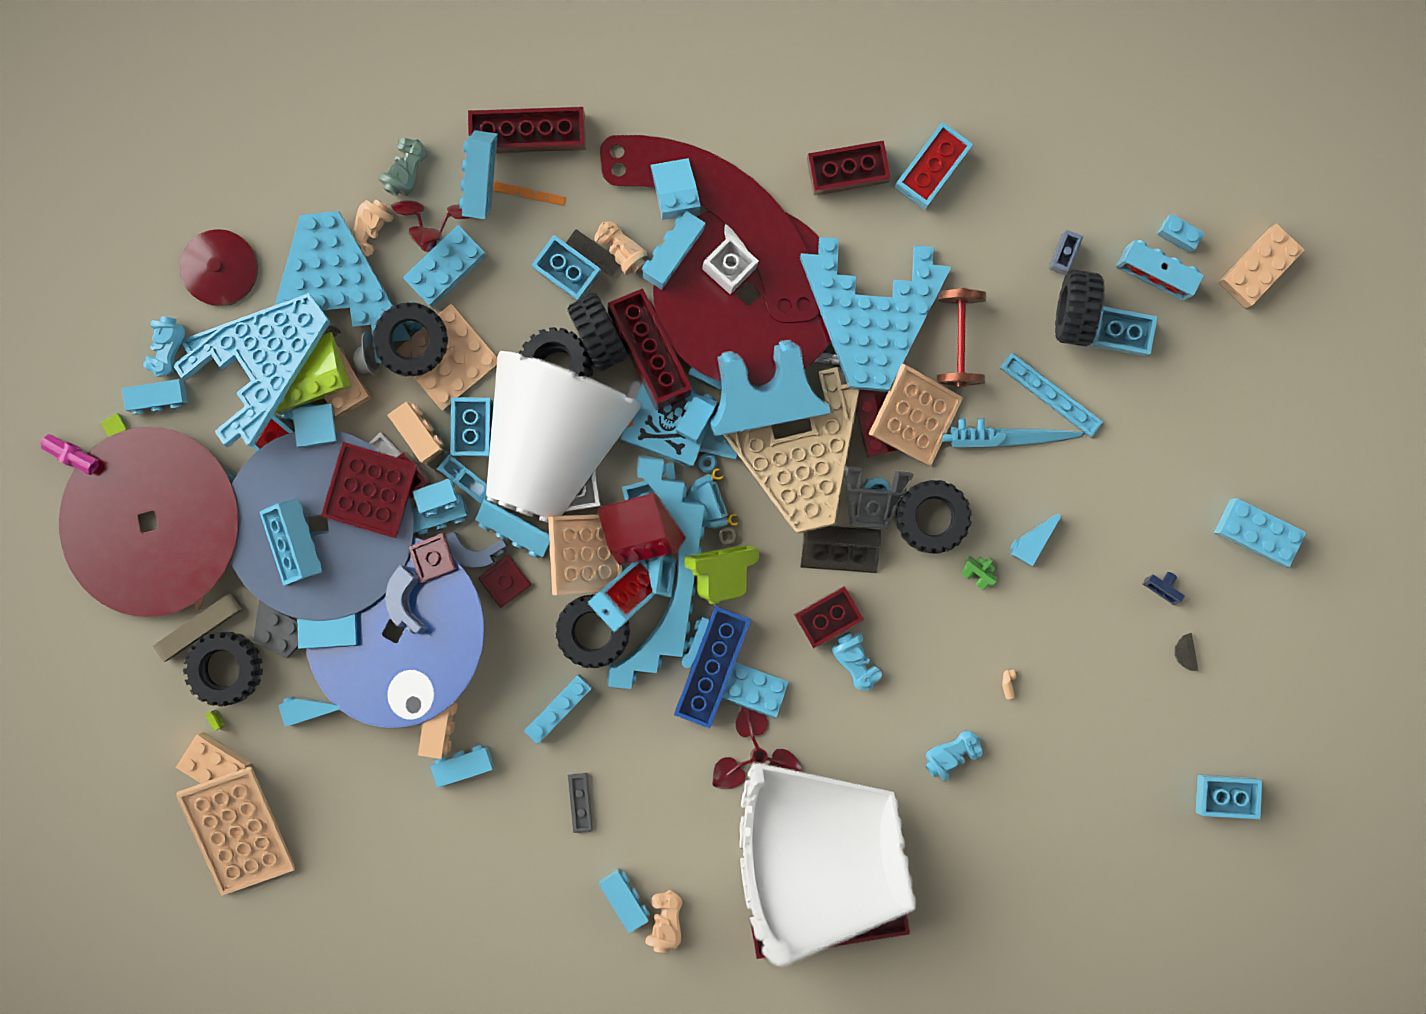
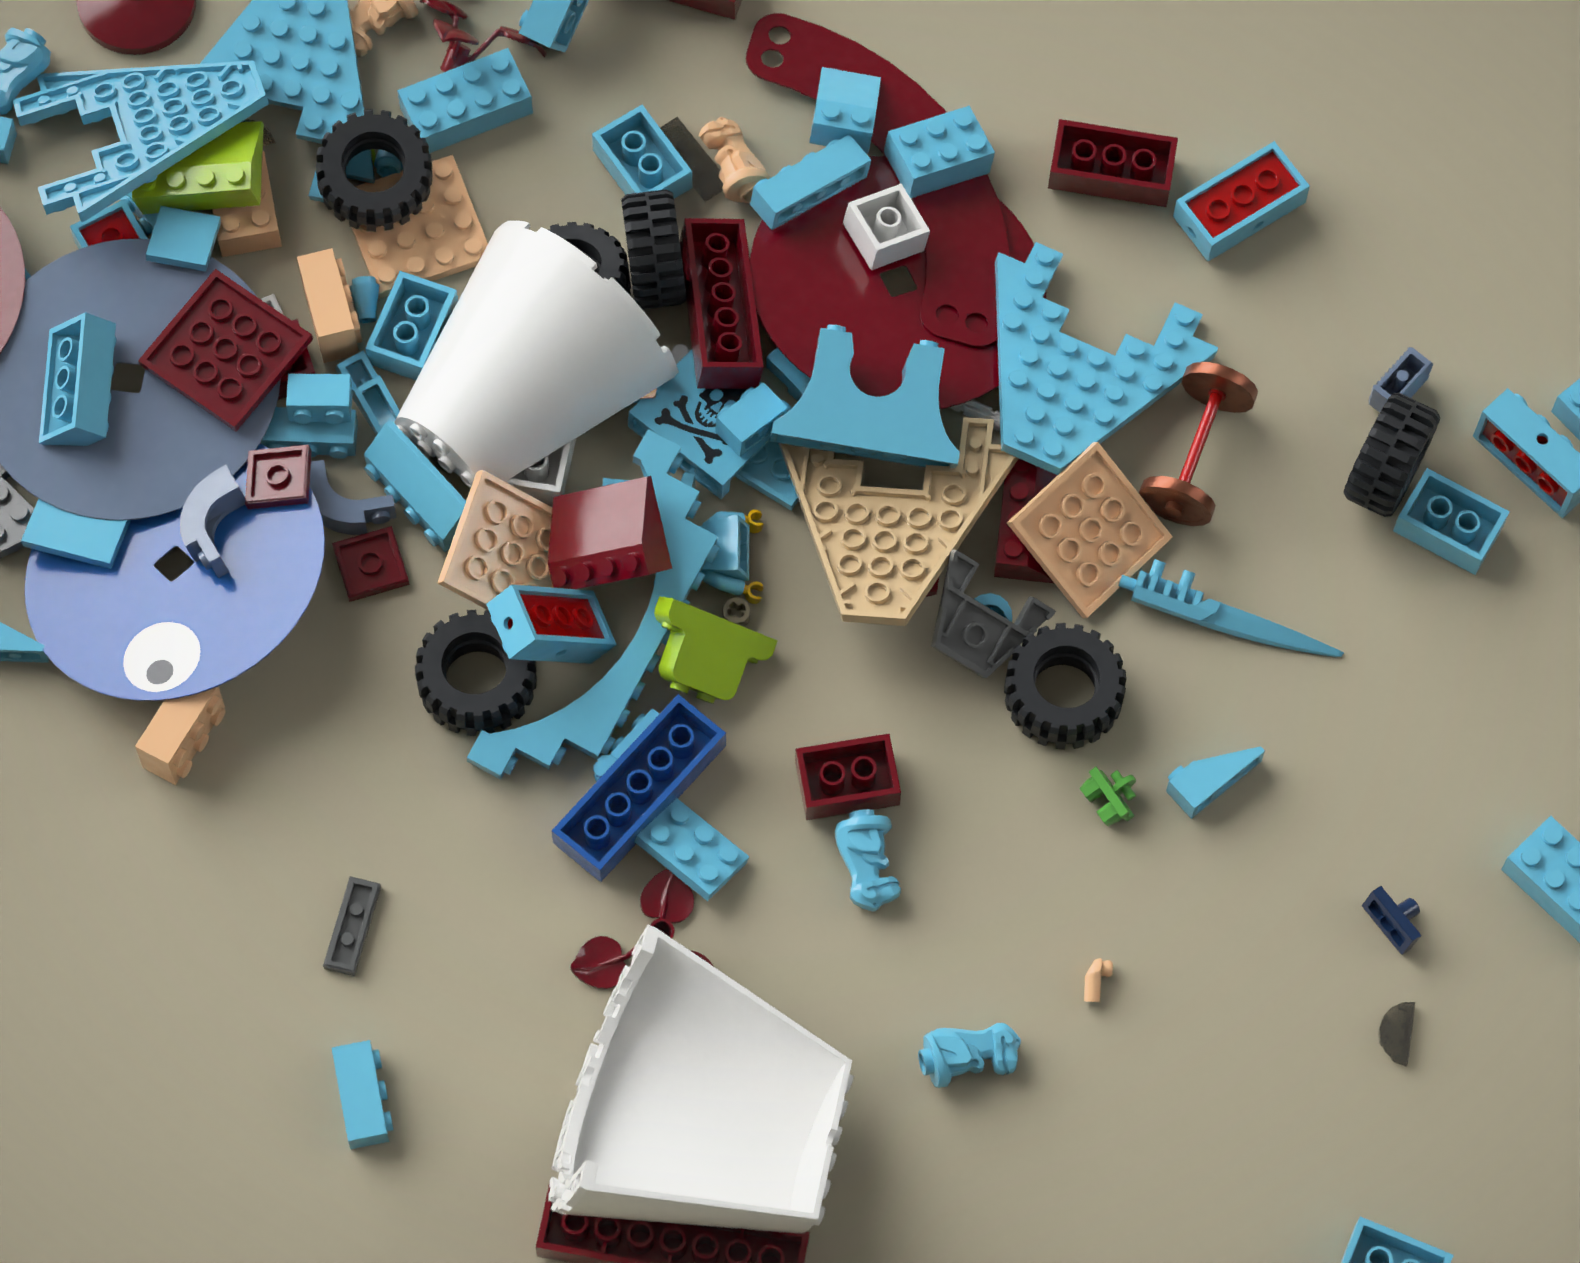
camera: 15 degrees right, 20 degrees down
(364, 357) = (295, 182): light grey piece -> none
(435, 416) = (365, 297): none -> medium azure cone
(462, 765) = (192, 804): medium azure brick -> none
(528, 193) = (627, 50): orange piece -> none
(558, 709) = (376, 770): medium azure brick -> none
(662, 574) = (619, 614): medium azure slope -> none
(666, 930) = (411, 1159): light nougat animal -> none
(707, 457) = (746, 491): medium azure plate -> none
(742, 199) = (939, 151): none -> medium azure brick
(841, 549) = (903, 688): clear smoke slope -> none
(1051, 395) = (1311, 581): medium azure tile -> none

